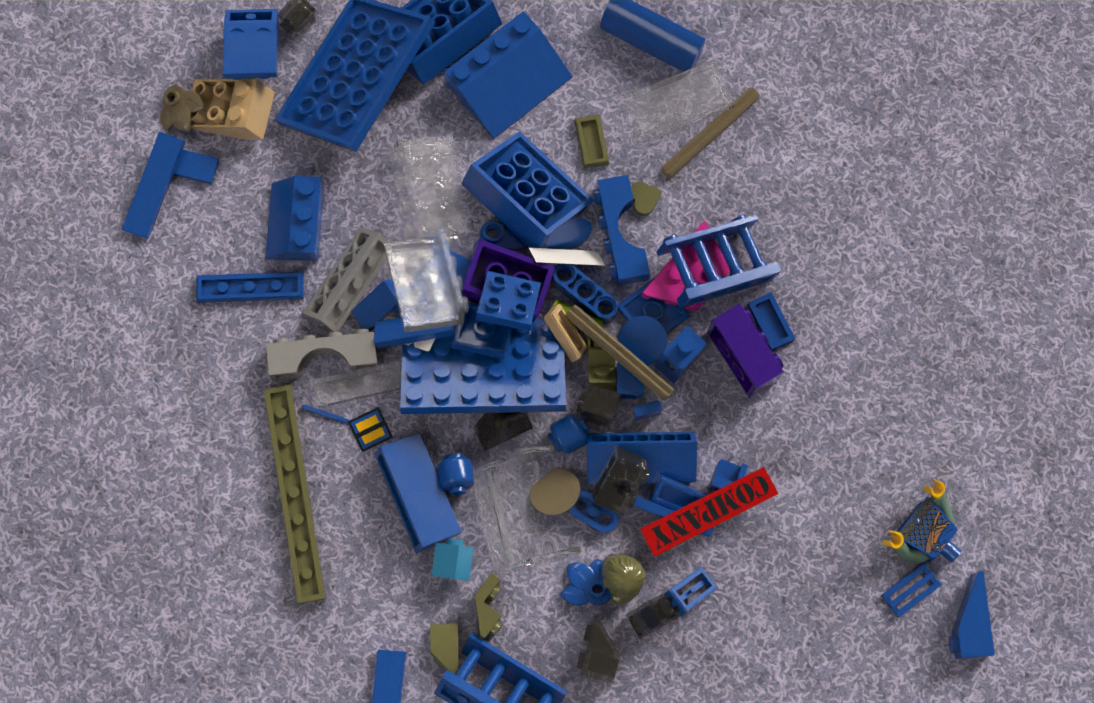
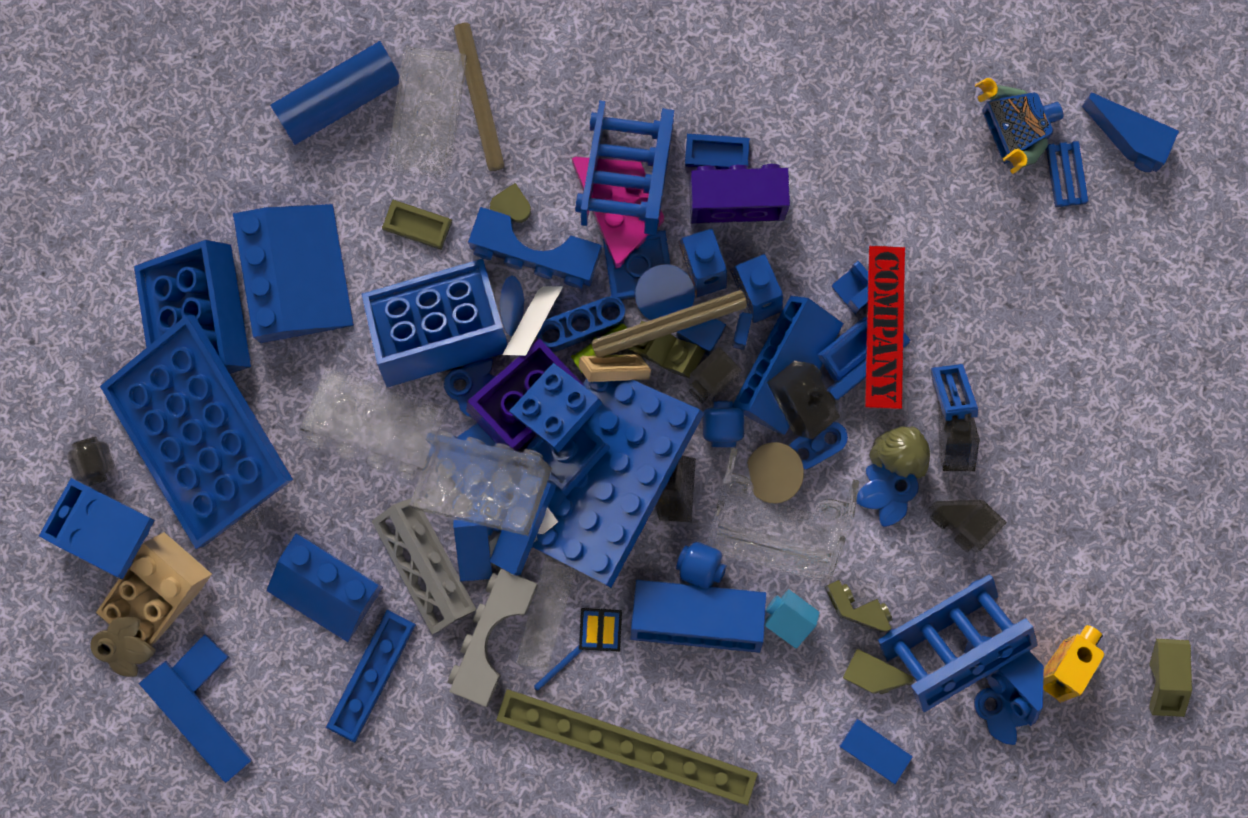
camera: 55 degrees left, 5 degrees up
(684, 404) = (759, 287): none -> blue torso

